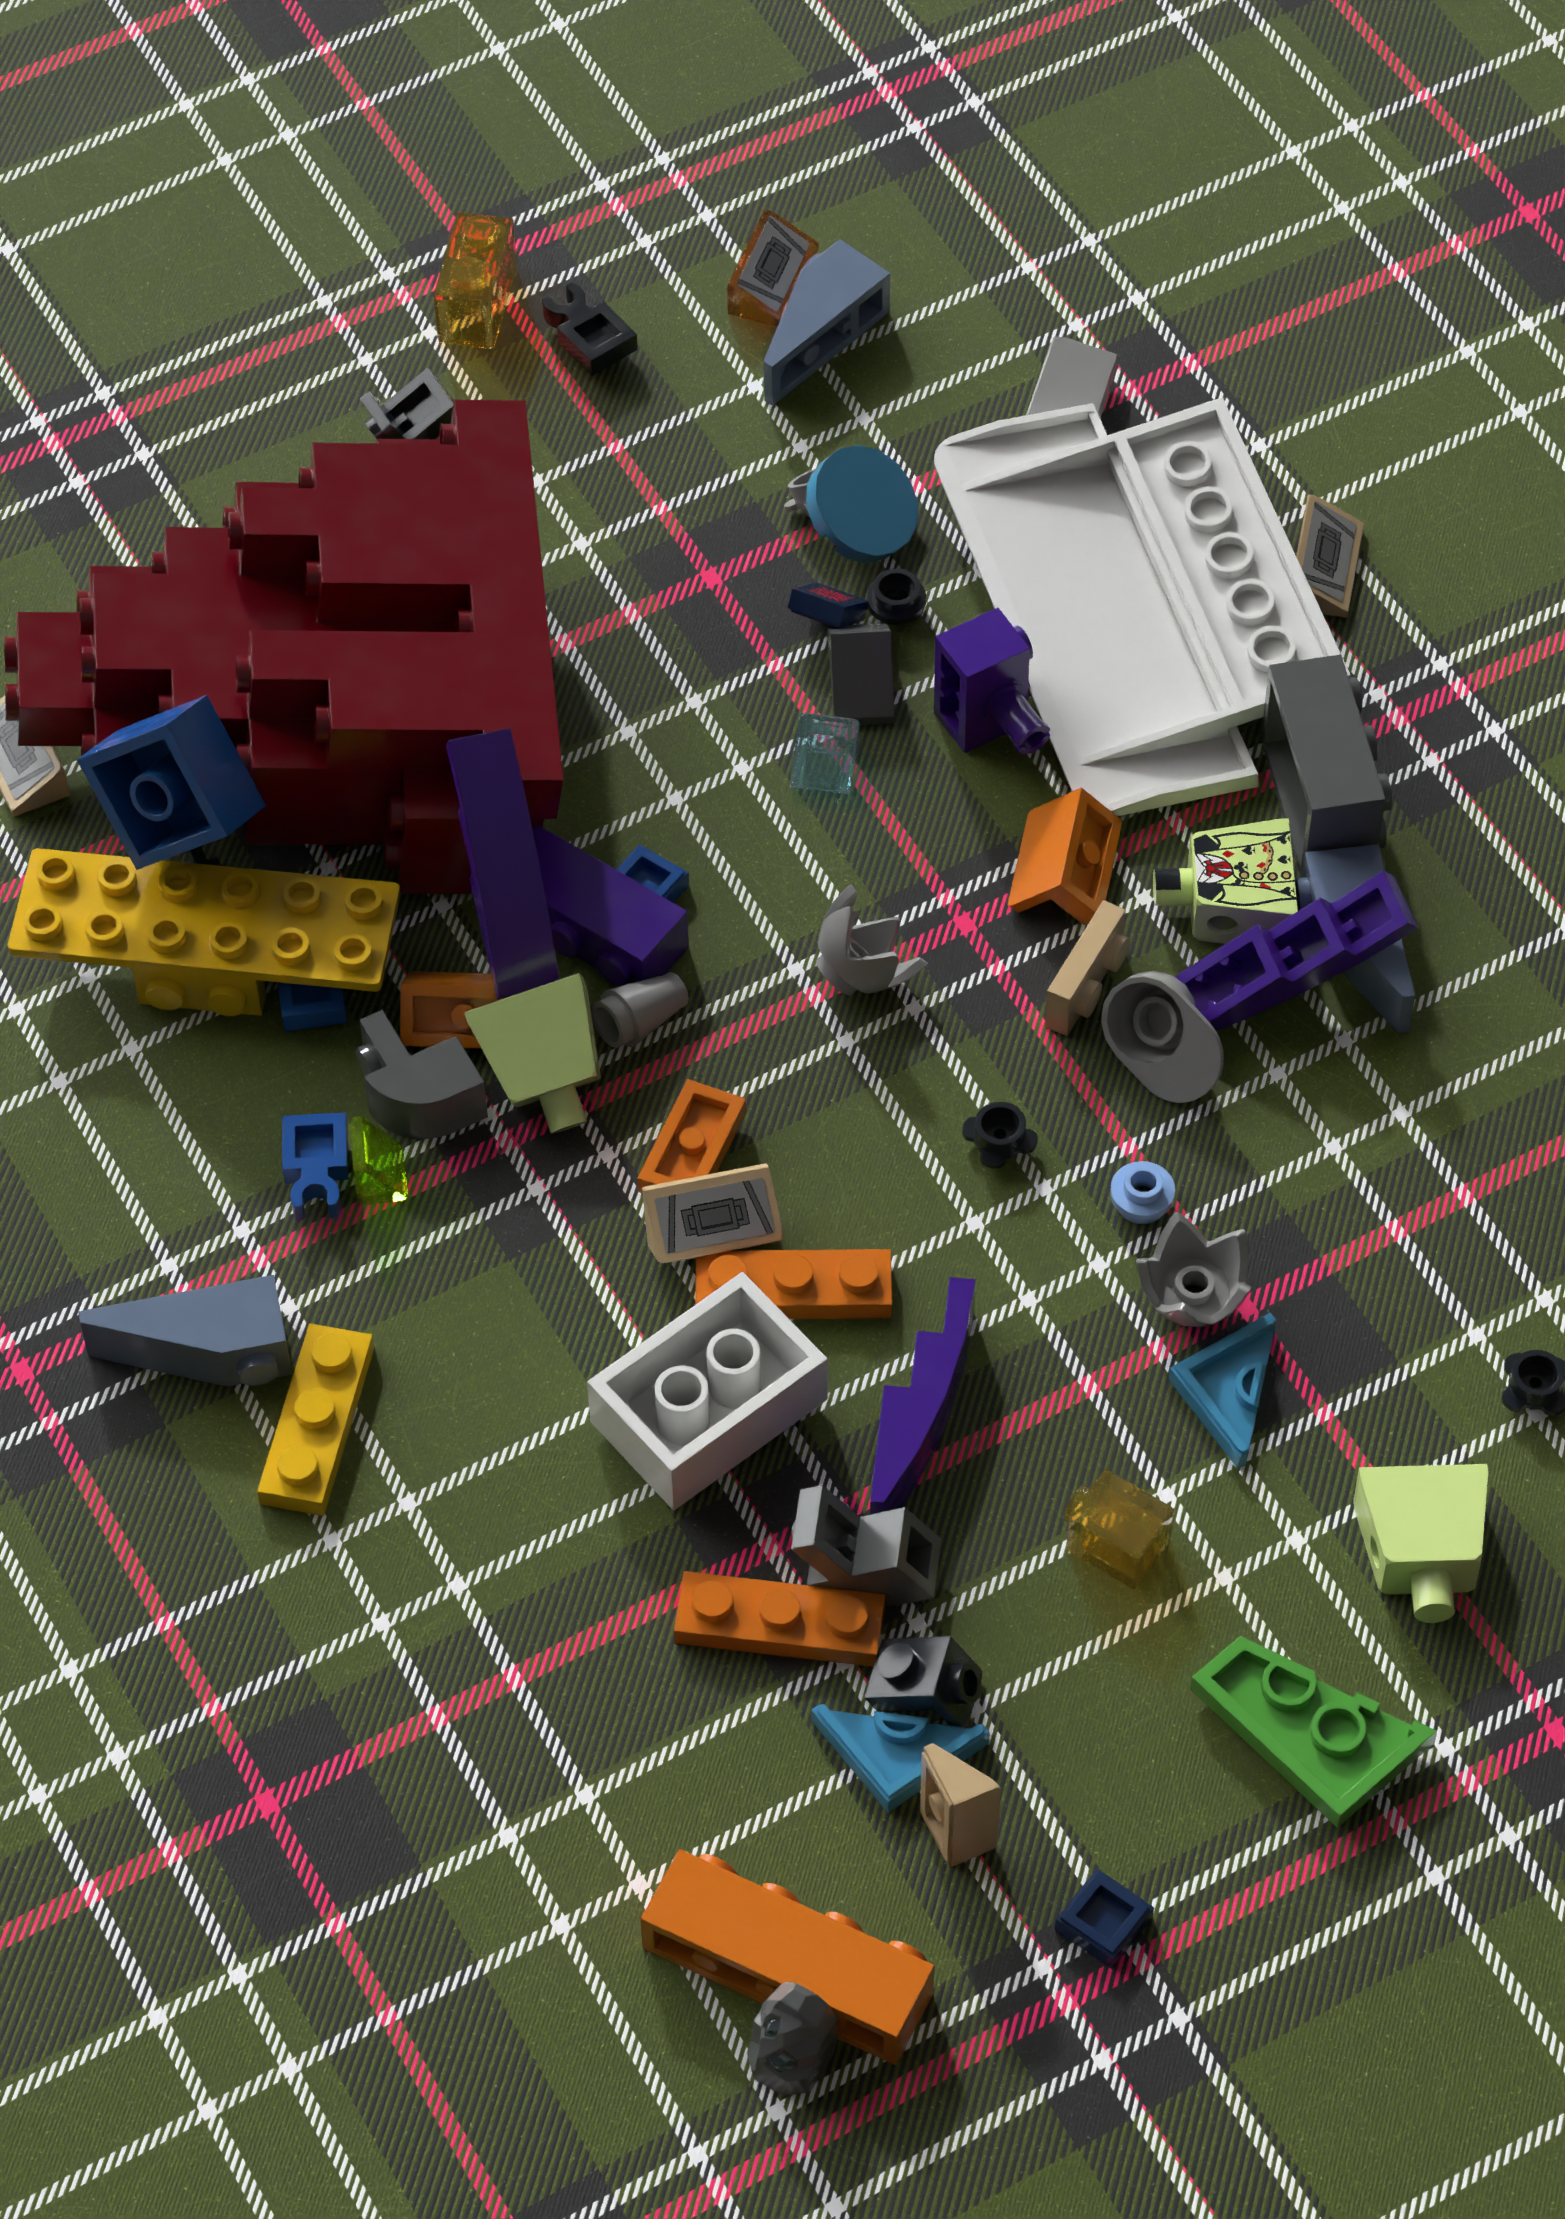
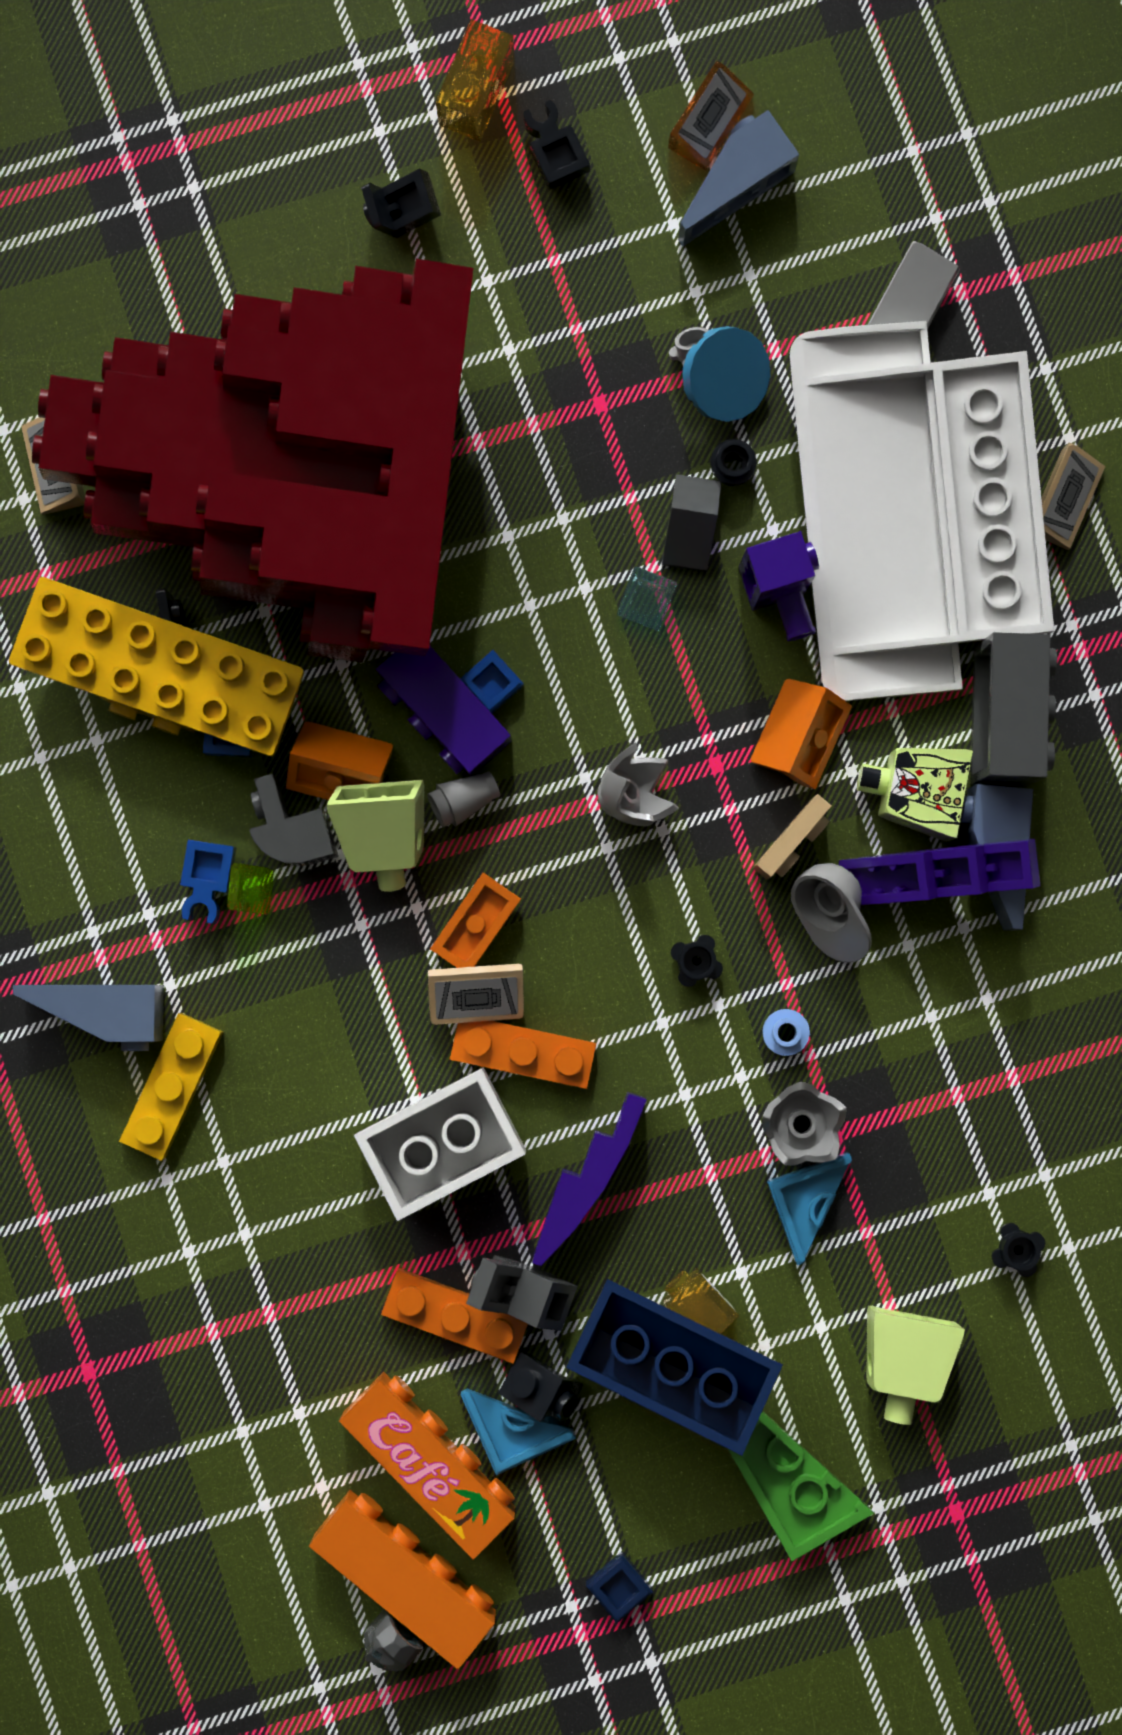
camera: 10 degrees right, 30 degrees up
(171, 782) = (138, 574): blue brick -> none
(503, 862) = (373, 696): dark purple slope -> none
(788, 1800) = (429, 1464): none -> orange brick
(827, 605) = (679, 461): dark blue tile -> none
(958, 1805) = (538, 1514): tan slope -> none
(1101, 1586) = (674, 1367): none -> dark blue slope

